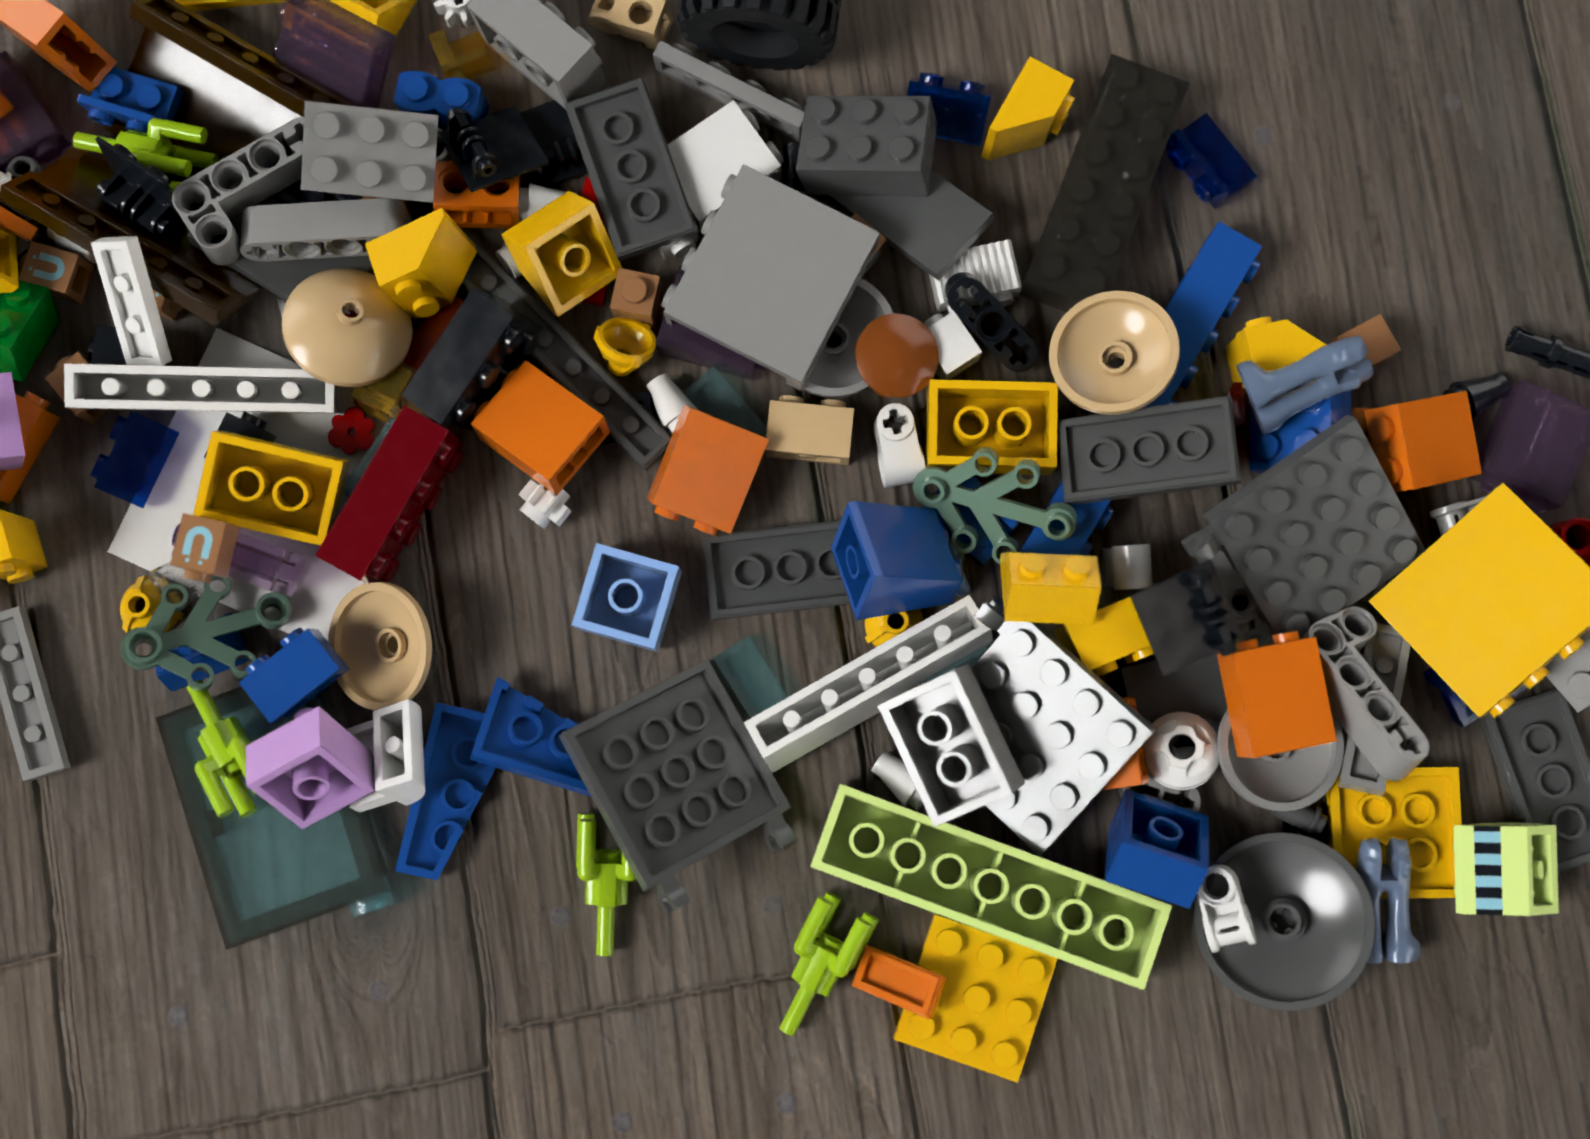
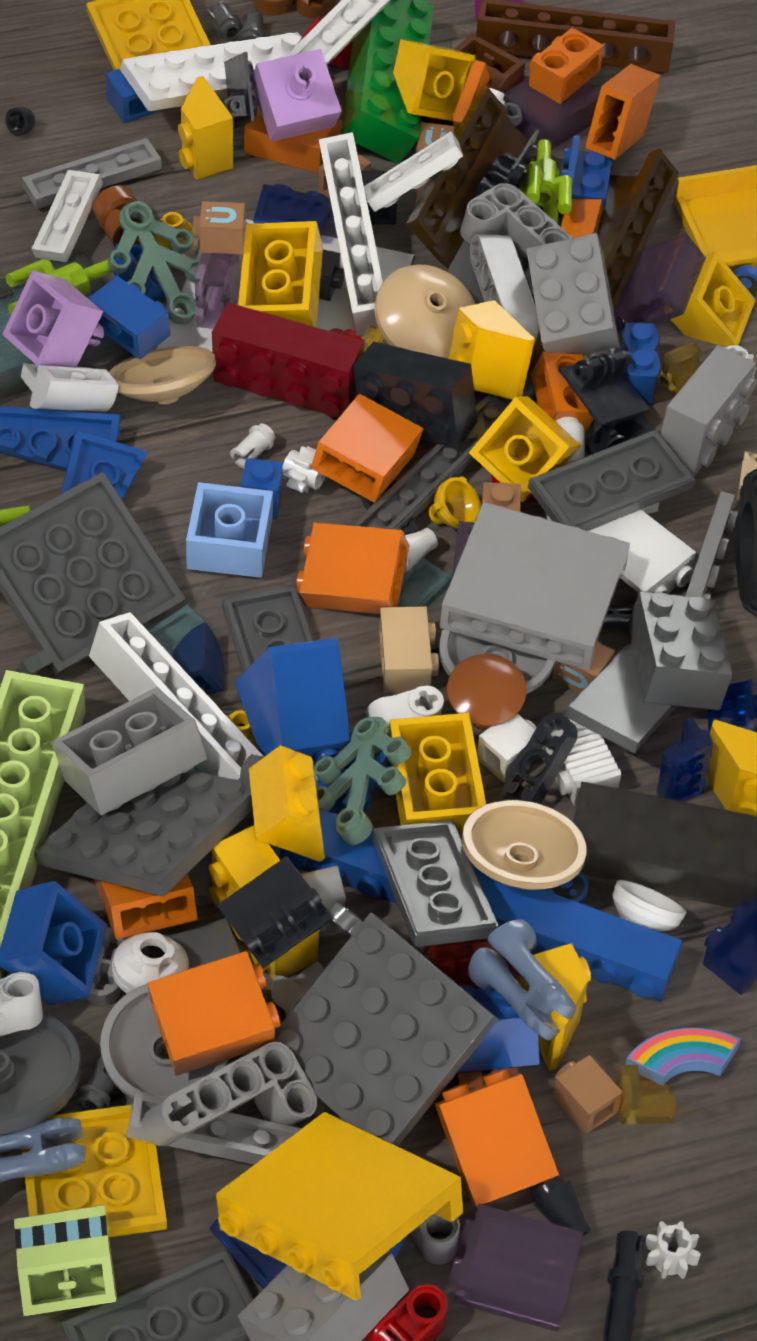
camera: 75 degrees right, 30 degrees down
(102, 731) = (67, 216): none -> white plate
(104, 671) = (107, 209): none -> dark orange wheel
(225, 128) = (583, 218): none -> orange tile
(493, 555) = (258, 440): none -> white pin
(566, 554) = (264, 476): none -> blue brick
(792, 655) = (201, 658): none -> dark blue brick
(1011, 161) = (686, 764): none -> clear blue bracket
(1162, 238) = (647, 906): none -> white piece
(1319, 249) = (683, 1051): none -> tile
(1367, 294) = (643, 1100): none -> clear yellow panel
(1530, 303) = (674, 1237): none -> white gear

